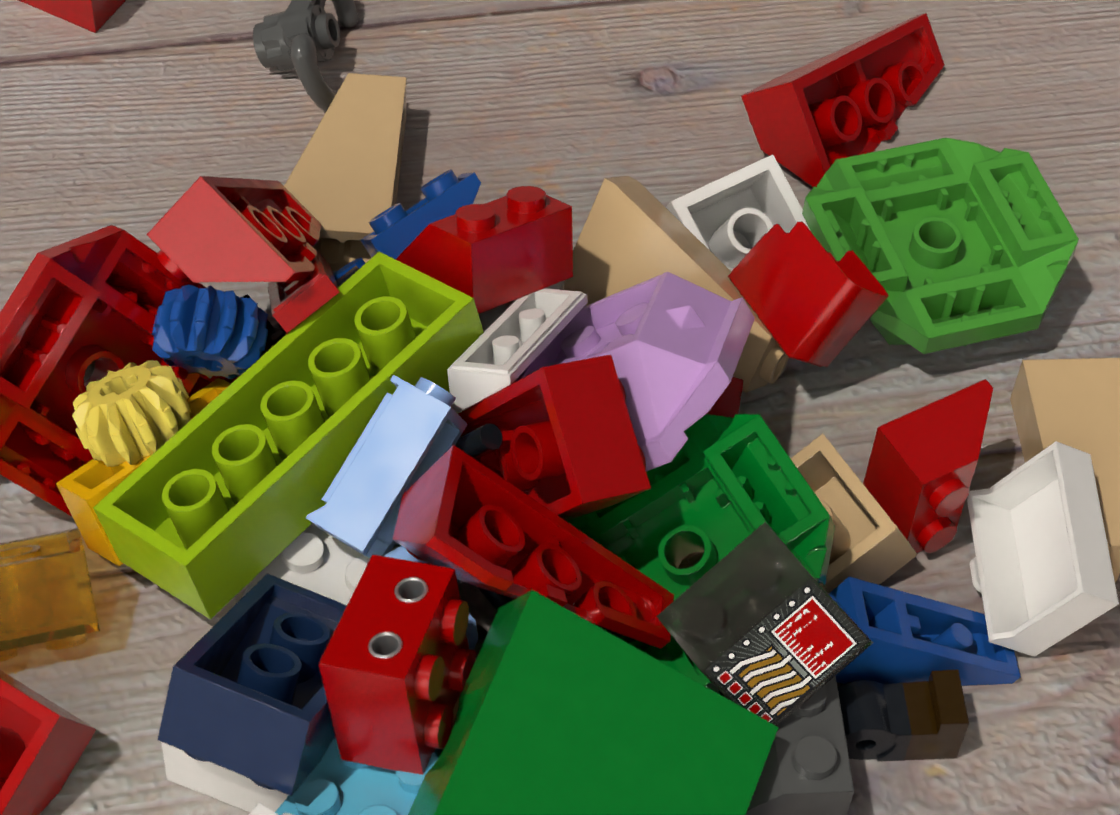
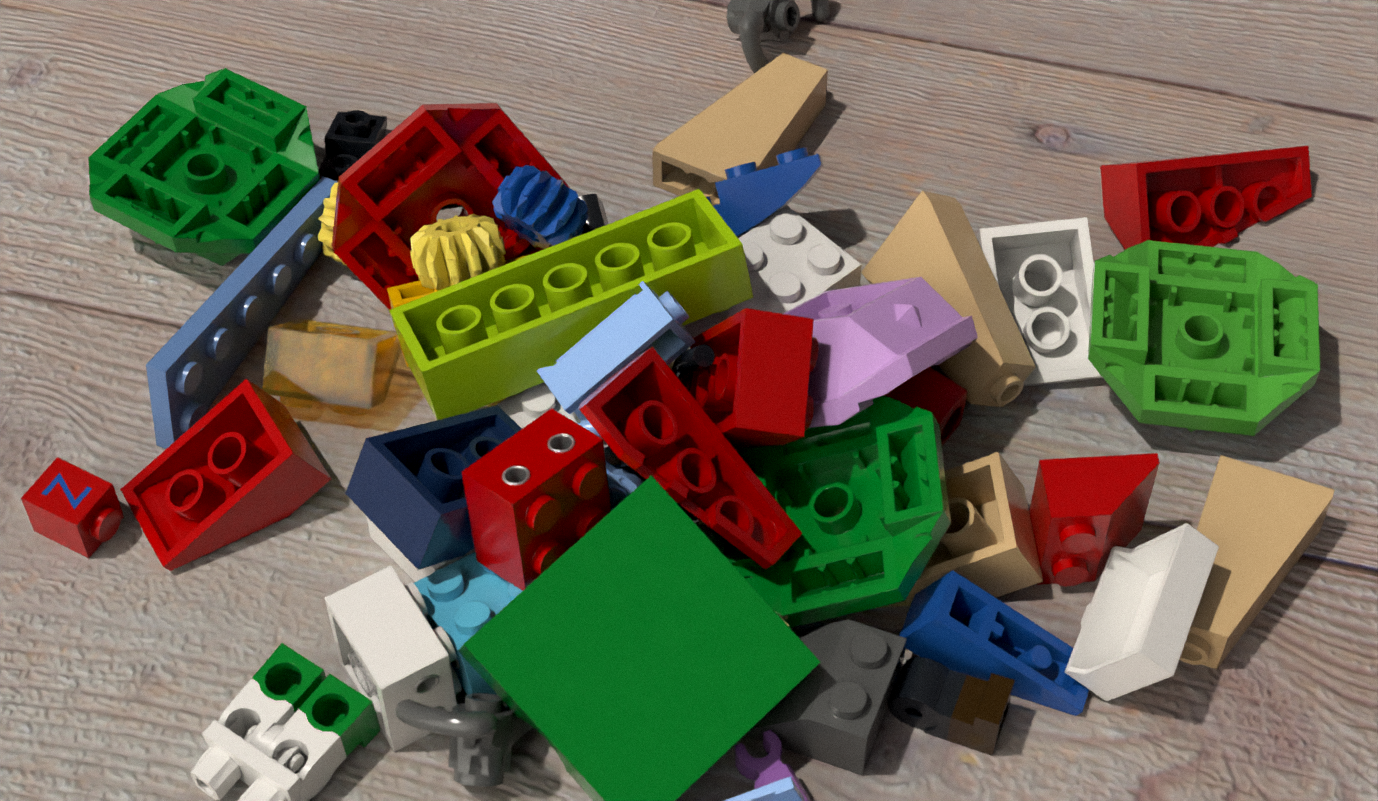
camera: 30 degrees right, 0 degrees up
(237, 233) = (602, 138): wedge -> none
(297, 300) = (634, 201): red tile -> none
(498, 247) = (796, 217): red slope -> none
(511, 344) = (767, 290): white slope -> none
(764, 627) = (846, 578): slope -> none
(807, 295) = (1046, 341): red piece -> none

